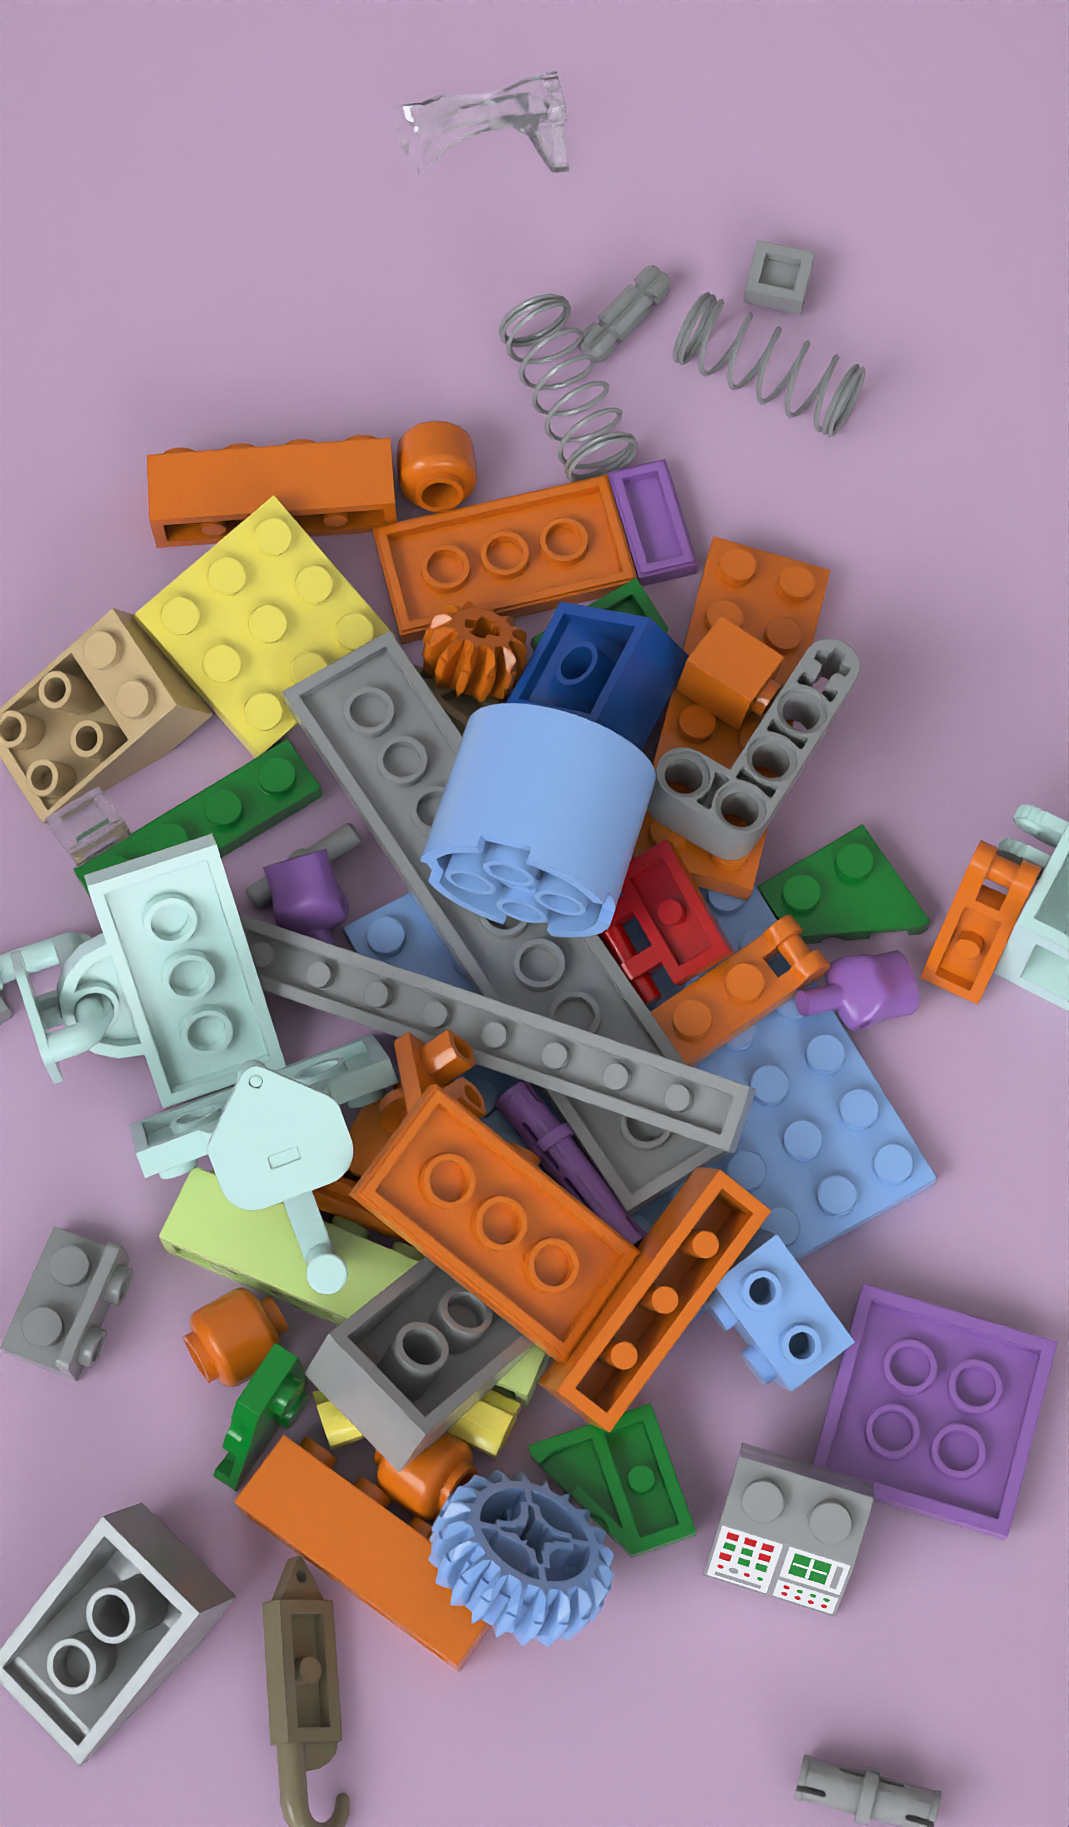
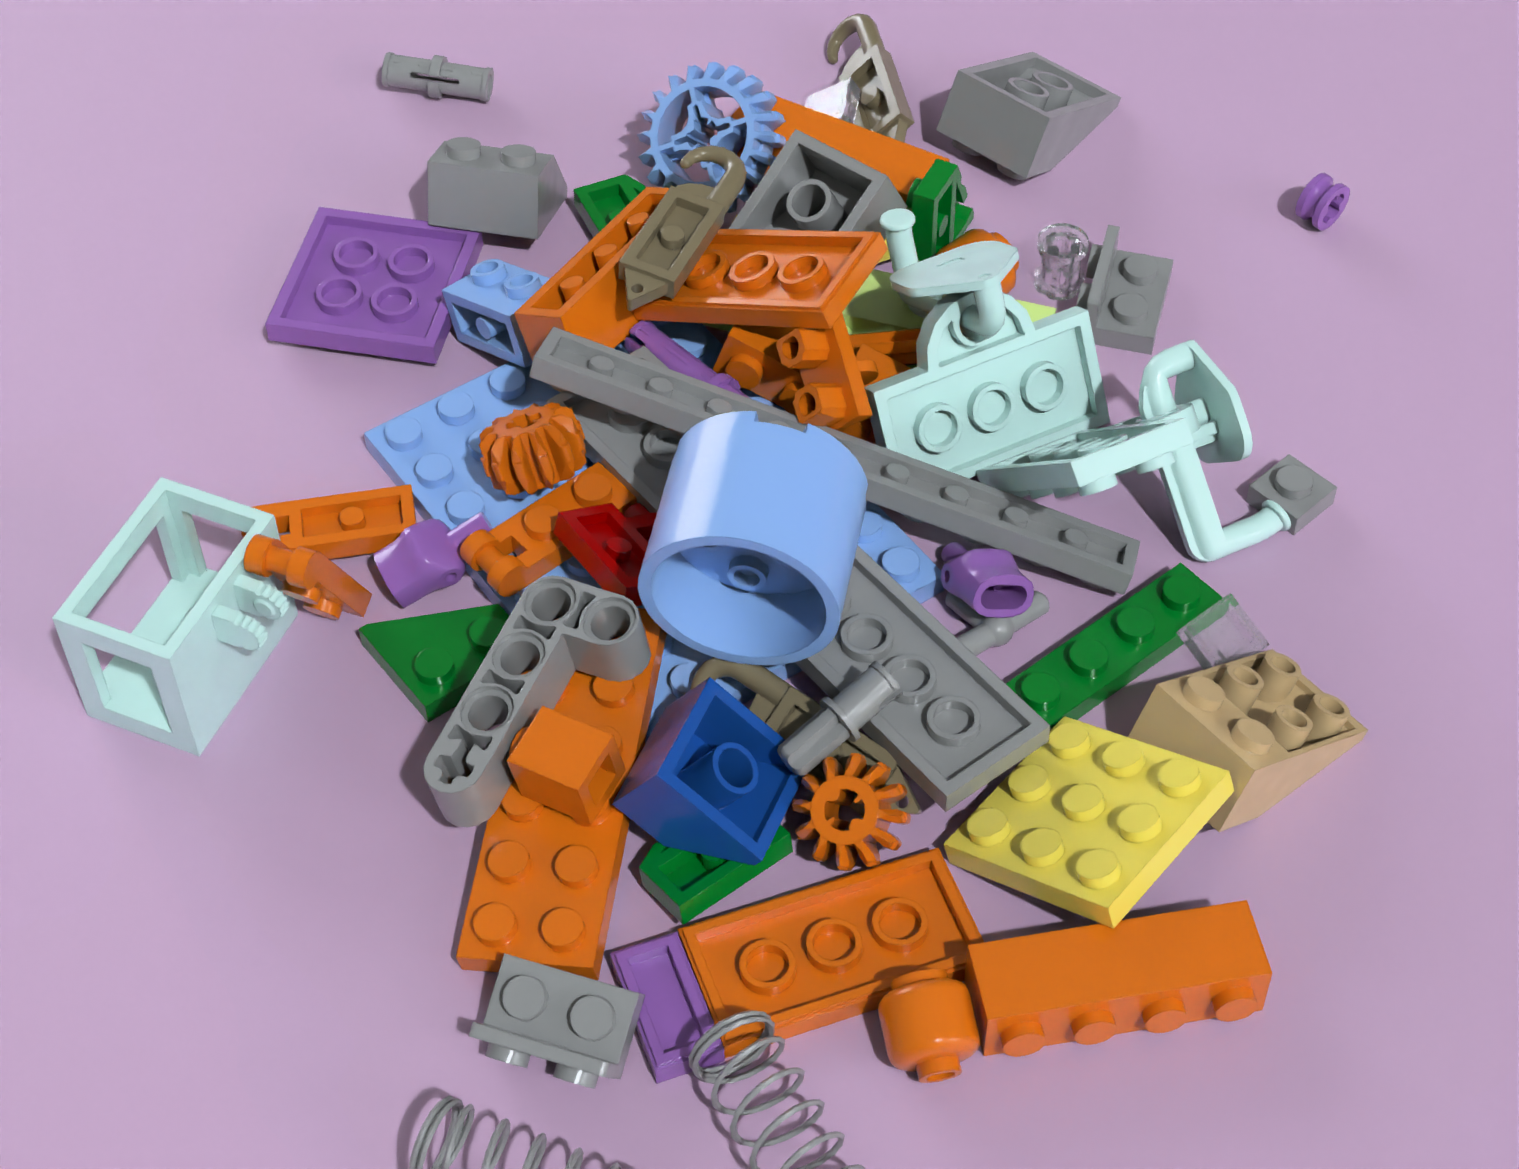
camera: 175 degrees right, 20 degrees down
(117, 1336) = (1073, 250): none -> clear bush
(363, 1660) = (837, 100): none -> clear tile
(452, 713) = (839, 719): none -> light grey axle
(574, 1303) = (680, 230): none -> dark tan plate
(746, 492) = (559, 1019): none -> light grey bracket
(778, 1053) = (532, 448): none -> orange gear
(965, 1052) = (345, 522): none -> orange plate

